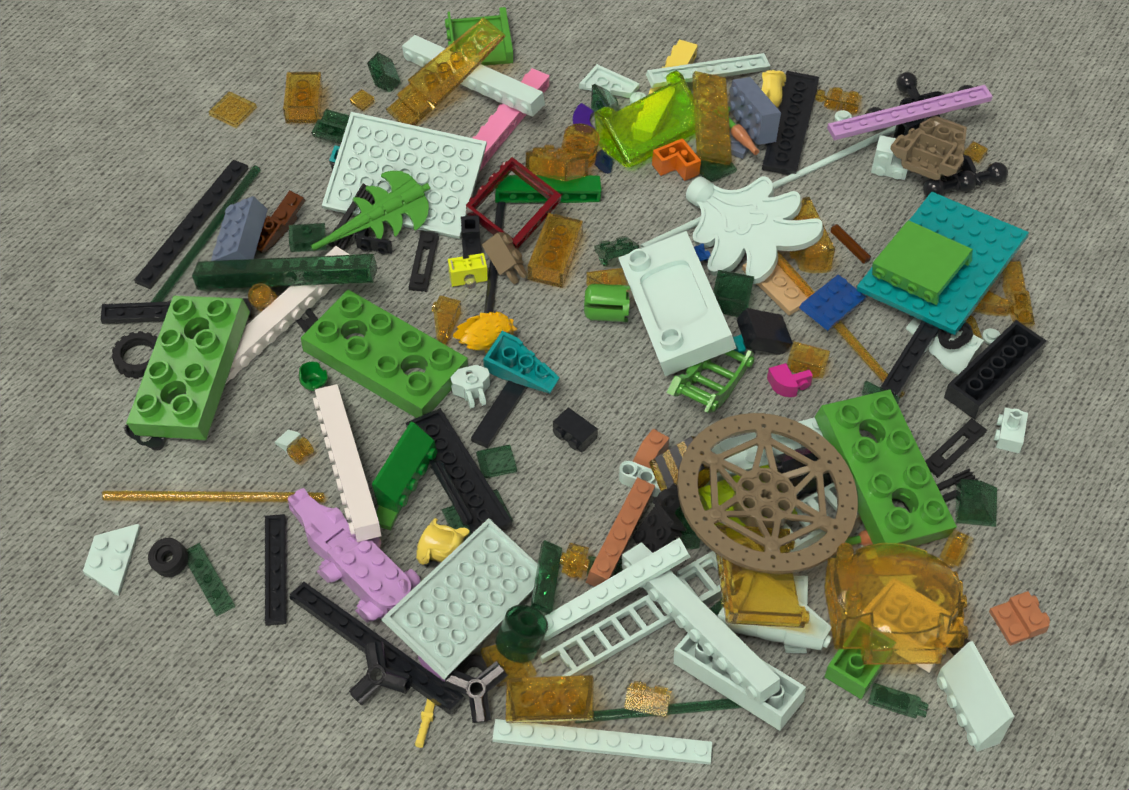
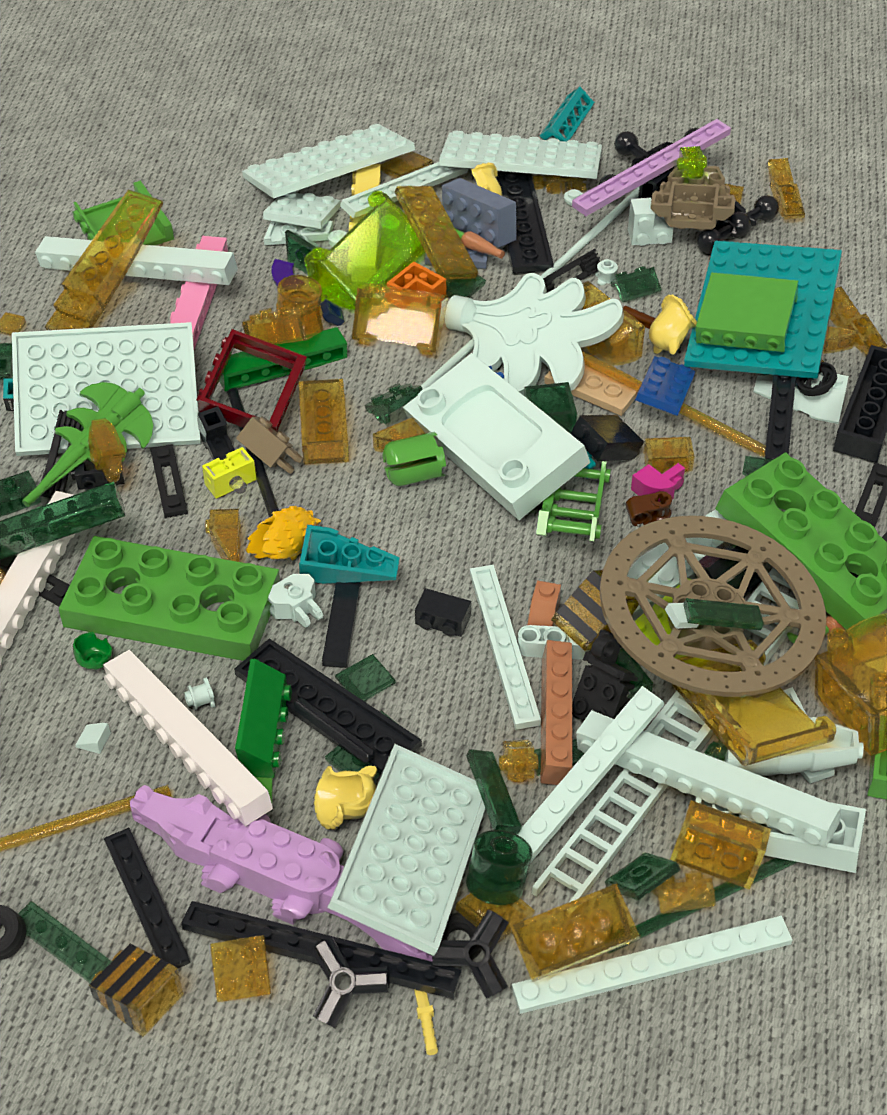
camera: 20 degrees left, 5 degrees down
(241, 629) = (137, 988): none -> clear yellow slope
(300, 450) = (115, 743): clear yellow wheel -> none
(315, 640) = (240, 968): none -> clear yellow hinge
(373, 434) = (199, 695): none -> light aqua brick
(383, 72) = (24, 286): clear green brick -> none
(383, 224) = (106, 449): none -> clear yellow hinge
(608, 471) = (505, 648): none -> light aqua plate
(619, 66) = (302, 209): none -> light aqua plate
(622, 676) = (643, 875): none -> clear green plate
(650, 180) = (399, 316): none -> clear yellow windscreen
(658, 29) = (327, 160): none -> light aqua plate
(685, 674) = (720, 844): none -> clear yellow brick
(720, 50) = (405, 164): none -> clear yellow tile
(738, 493) = (677, 615): none -> light aqua tile
(769, 503) = (723, 614): none -> clear green tile
(770, 398) = (647, 509): none -> reddish brown piece
(817, 68) = (522, 154): none -> light aqua plate
(825, 179) = (587, 263): none -> black container
(836, 191) = (606, 271): none -> light aqua brick
(855, 208) = (636, 284): none -> clear green bracket
(859, 254) = (671, 325): none -> light yellow hair
(874, 40) = (565, 112): none -> teal fence
(941, 118) = (691, 162): none -> clear neon green brick
(990, 335) = (849, 370): light aqua plate -> none
(1022, 160) = (784, 189): none -> clear yellow slope

